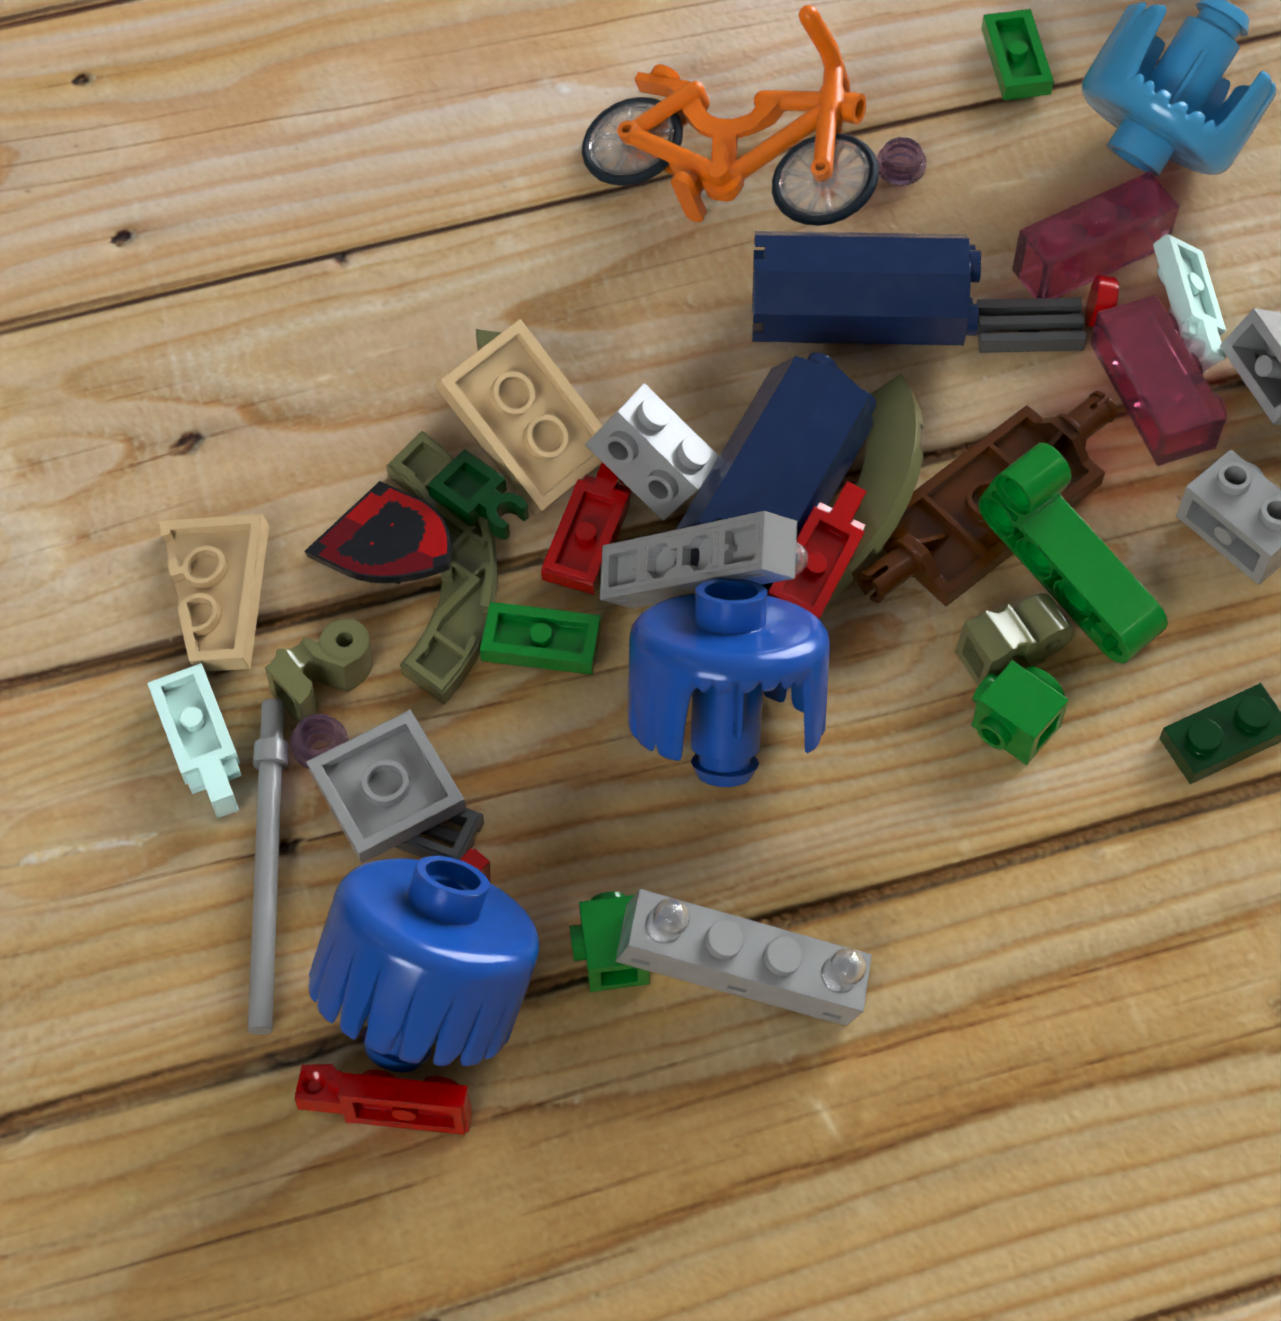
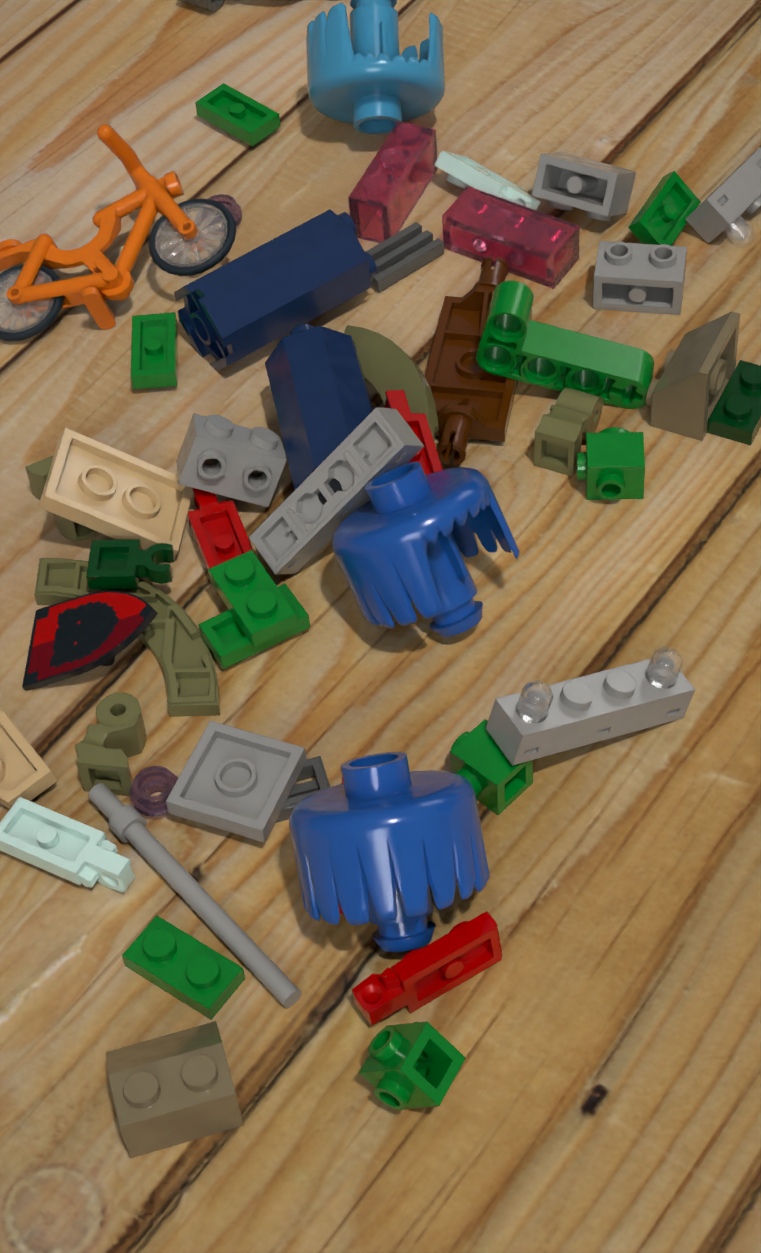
camera: 35 degrees left, 10 degrees down
(92, 1032) = (173, 1089): none -> dark tan slope
(201, 929) = (183, 967): none -> green plate
(281, 1177) = (411, 1065): none -> green brick
(553, 611) = (253, 598): none -> green plate
(705, 277) = (154, 351): none -> green plate
(1102, 296) = (429, 213): red tile -> none
(1185, 674) = (695, 378): none -> dark tan slope

